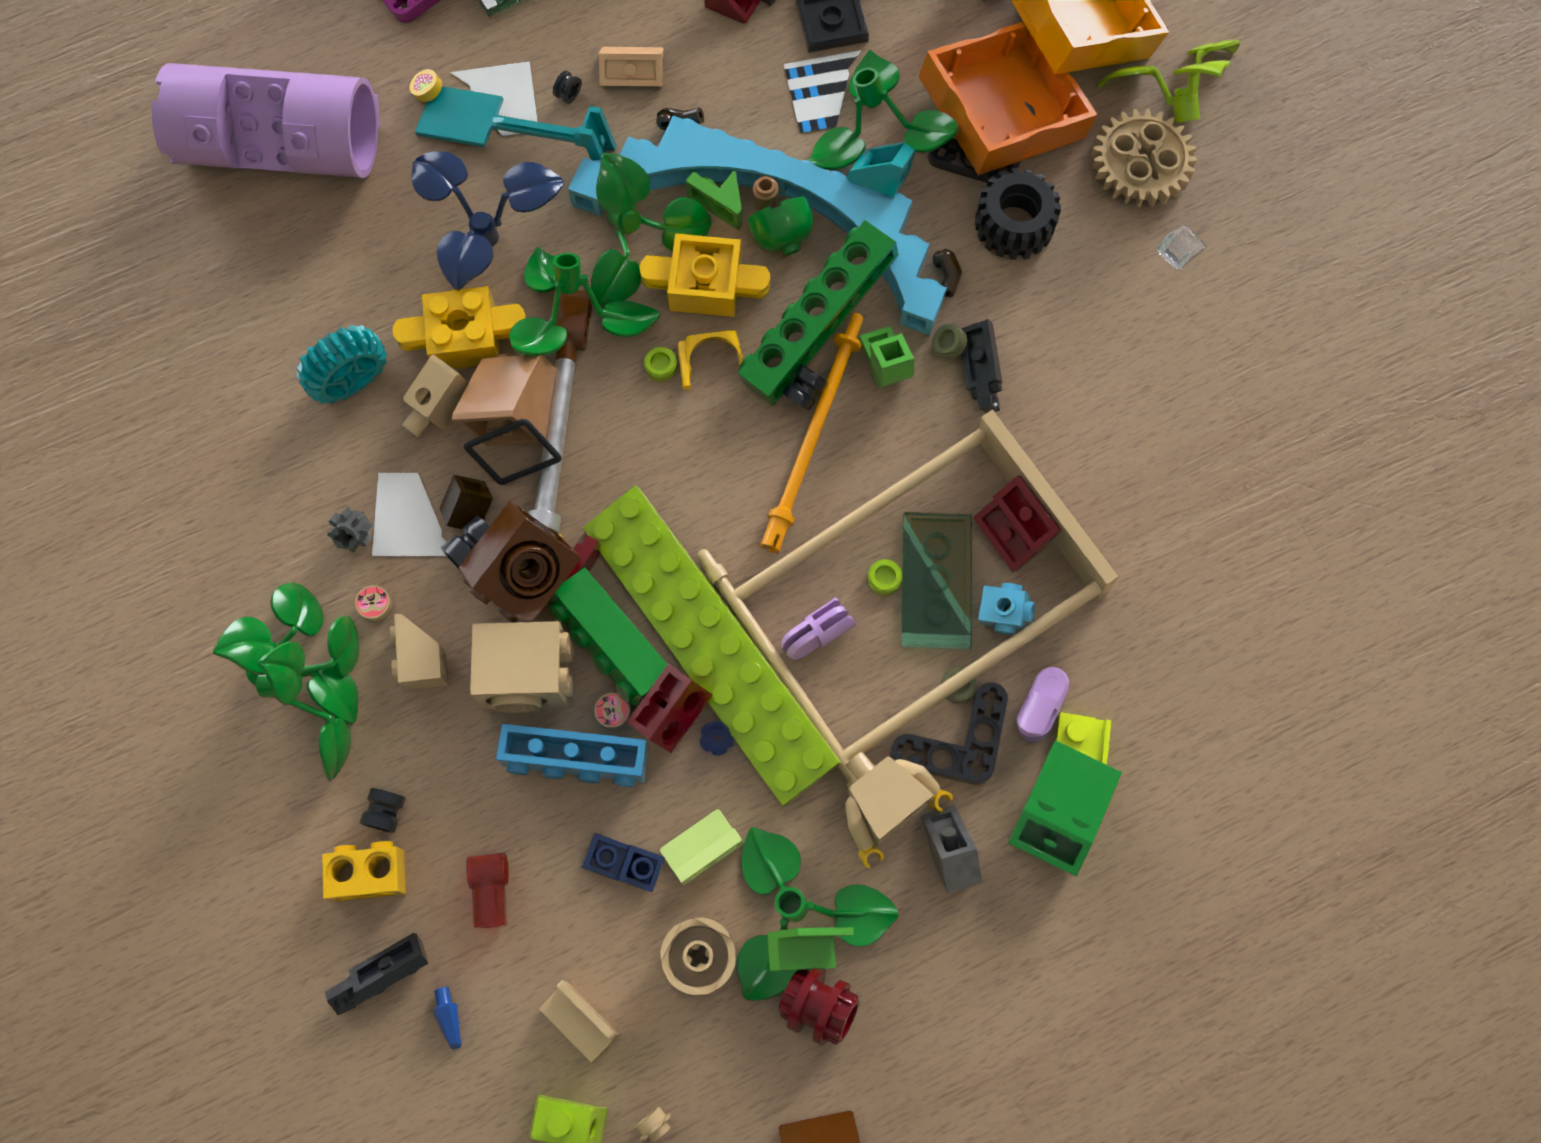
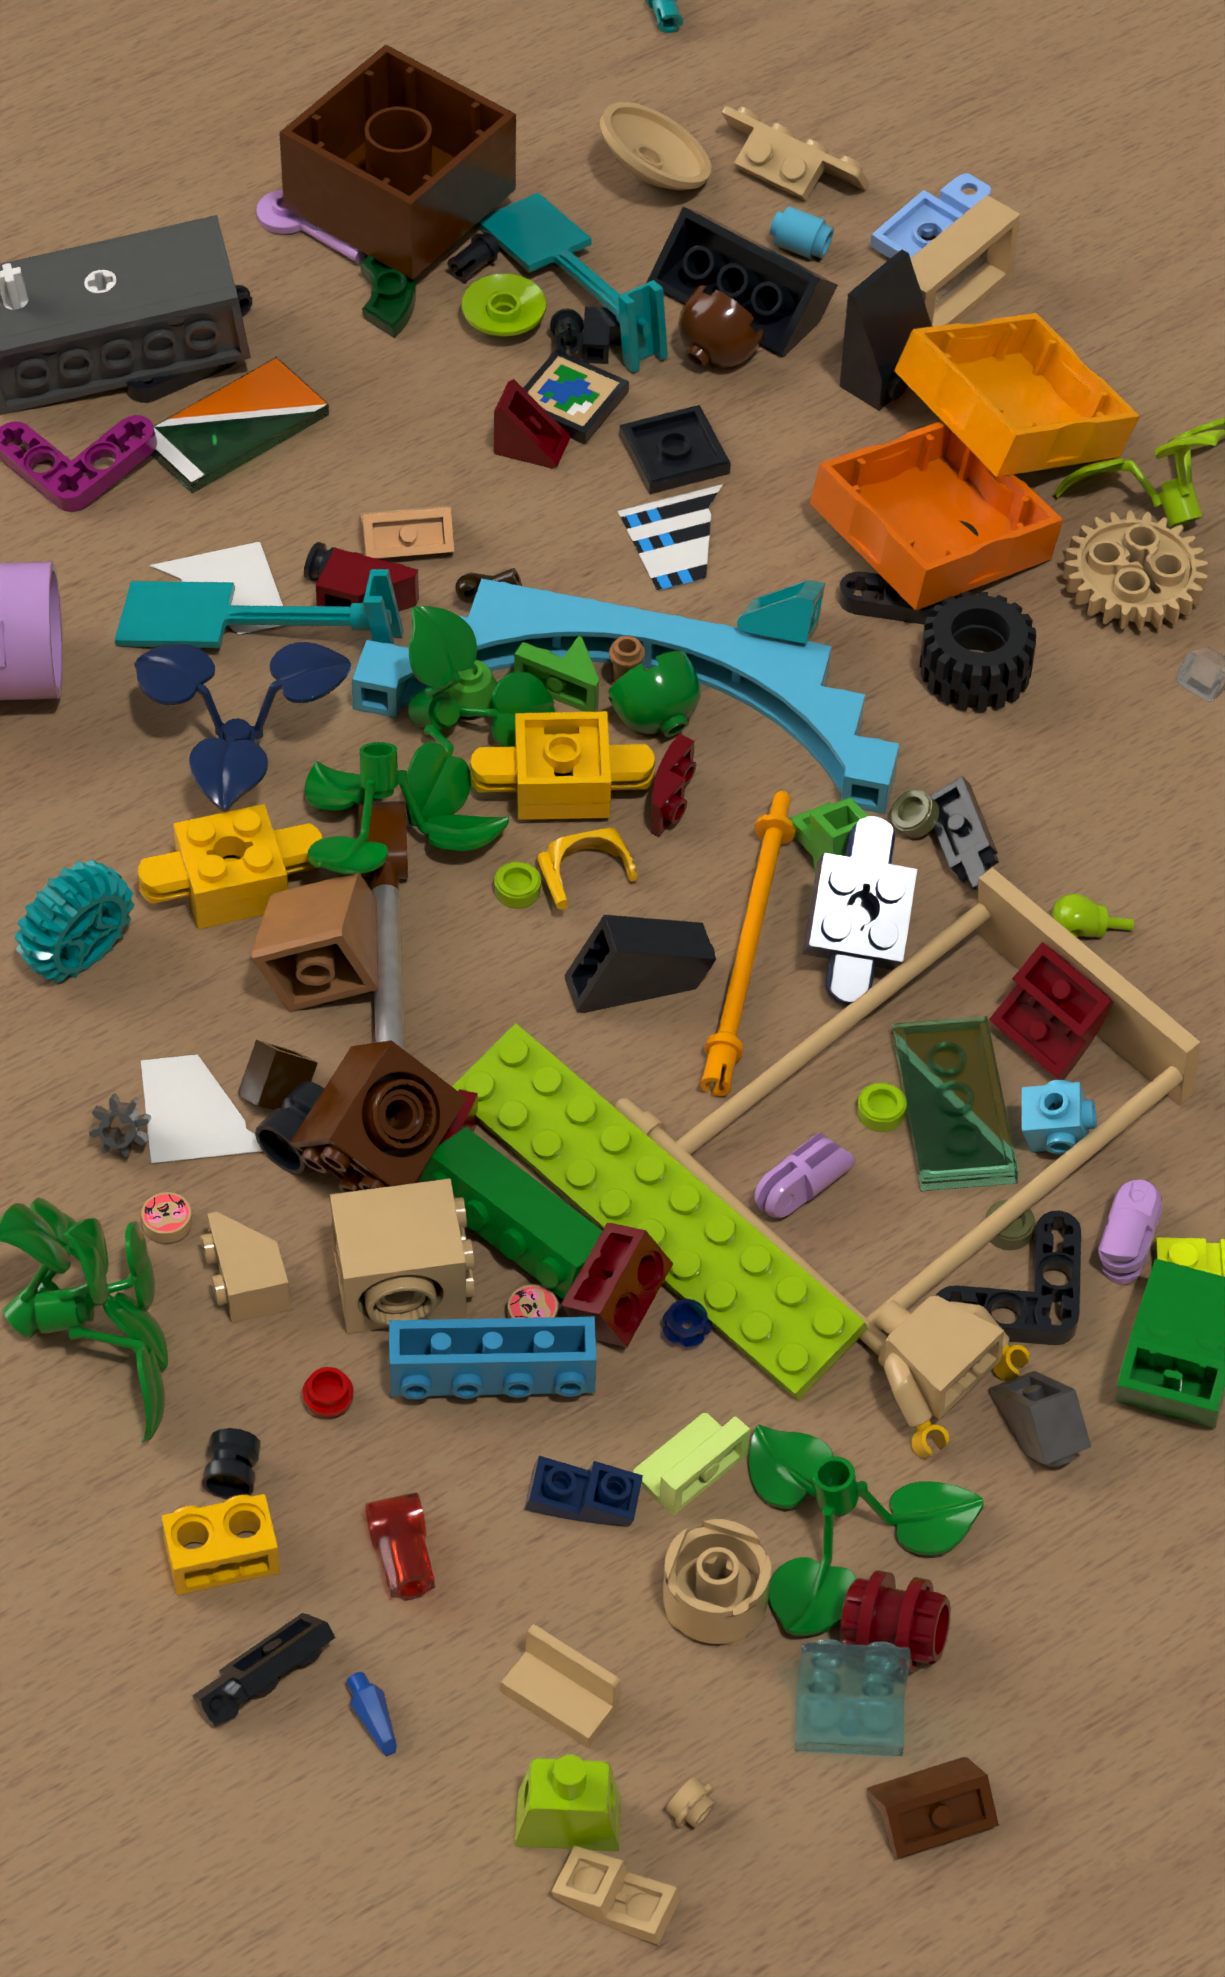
camera: 10 degrees left, 20 degrees down
(426, 85) = (121, 581): yellow tile -> none
(433, 396) = (213, 946): tan torso -> none
(460, 759) = (328, 1392): none -> red plate
(522, 422) = (318, 967): black piece -> none
(579, 96) = (347, 576): none -> dark red slope
(656, 201) = (474, 687): none -> bright green cone
(732, 442) = (638, 961): none -> black slope
(775, 1068) = (851, 1698): none -> clear light blue bracket
(778, 298) = (670, 782): none -> dark red slope
(804, 948) = (863, 1539): bright green panel -> none
(805, 387) = (727, 885): black wheel -> none
(860, 242) = (680, 885): green brick -> none
(868, 87) = (748, 515): green plant -> none
(893, 425) = (860, 910): none -> brick
(948, 262) = (893, 719): dark brown arm -> none
(1054, 440) = (1085, 917): none -> lime piece

